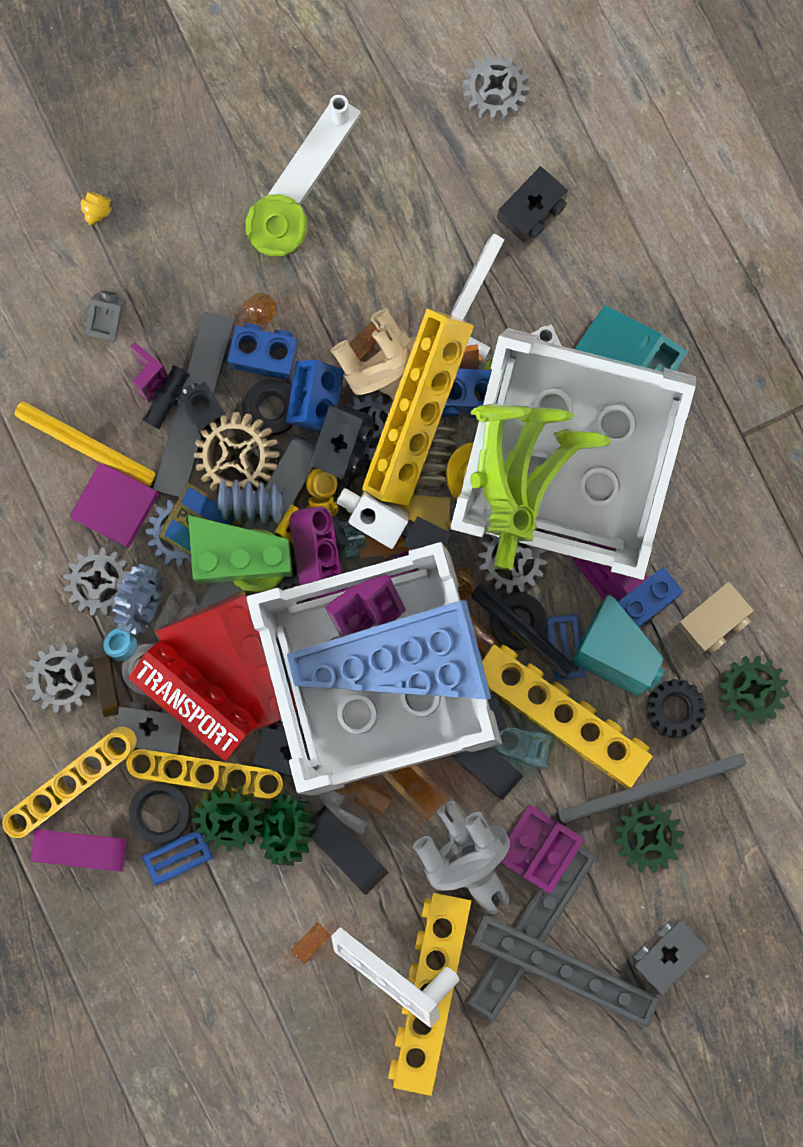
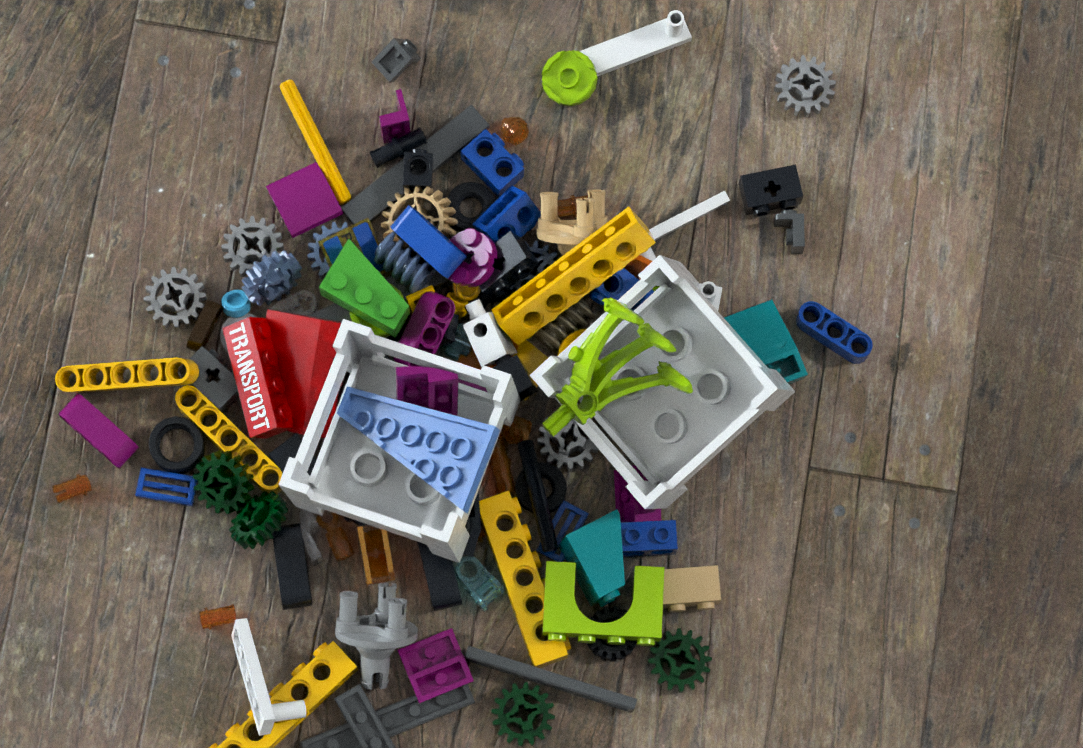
camera: 30 degrees right, 5 degrees down
(93, 918) = (73, 488): none -> clear orange pin
(261, 467) = (428, 241): none -> blue beam
(291, 460) = (482, 261): none -> magenta plate
(583, 228) = (795, 235): none -> dark grey bracket
(692, 287) = (839, 345): none -> blue beam
(699, 680) = (565, 619): none -> lime arch

